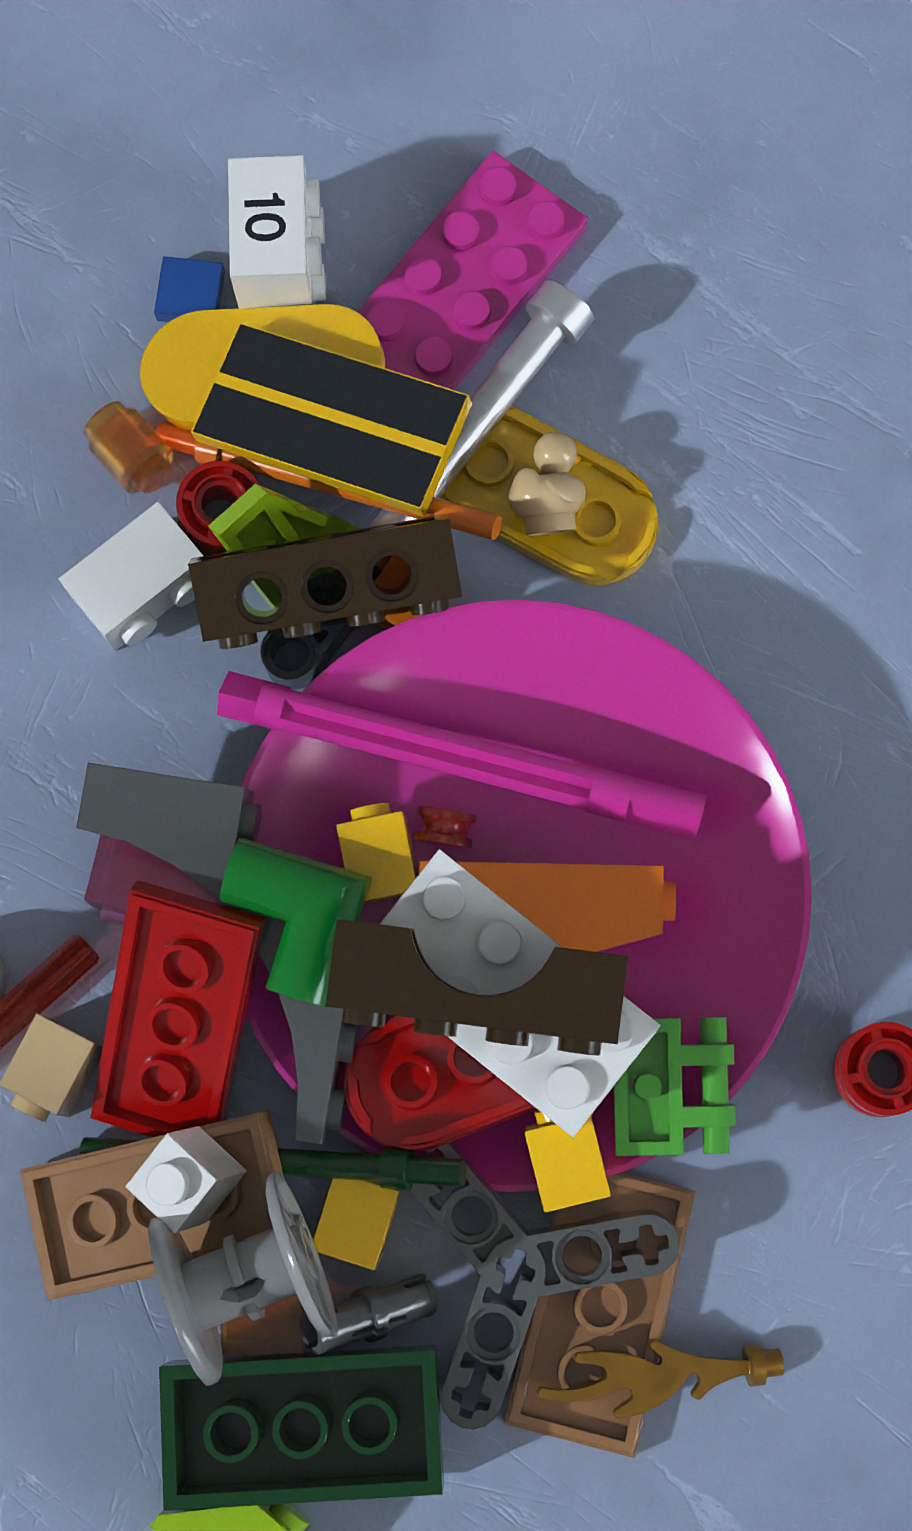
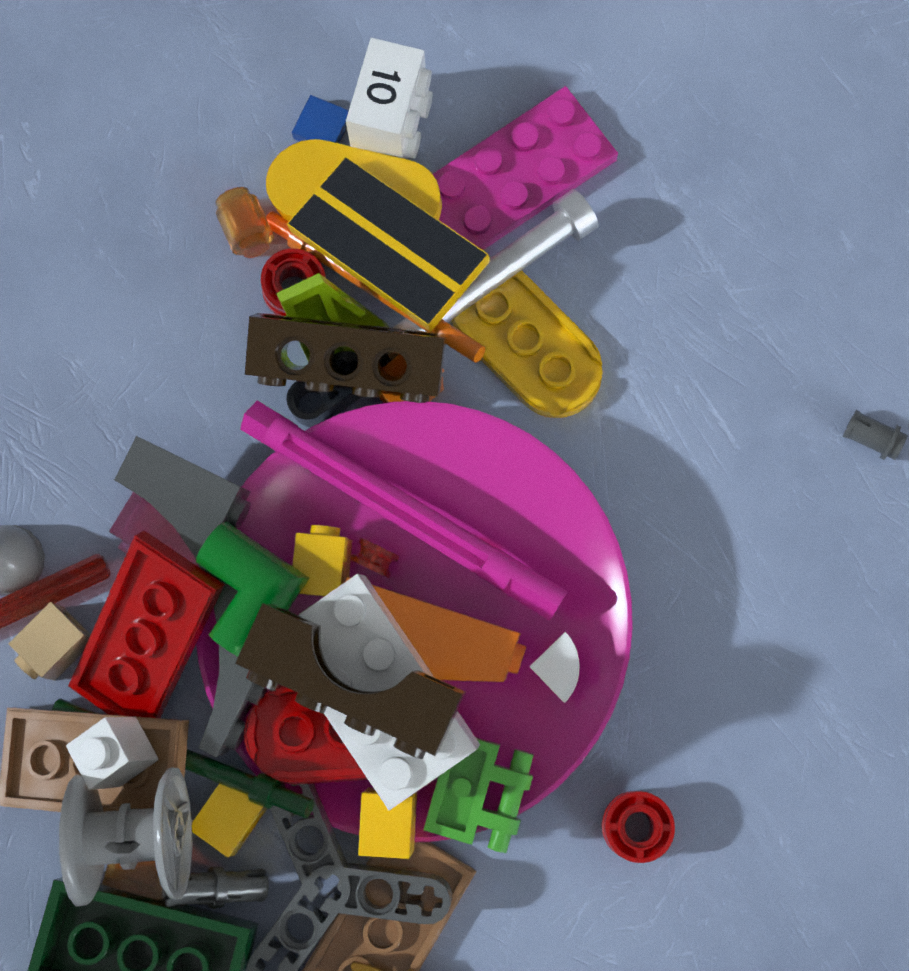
camera: 15 degrees right, 0 degrees up
(134, 577) = (215, 314): white brick -> none
(552, 498) = (528, 344): tan animal -> none
(724, 895) = (559, 667): none -> white tile

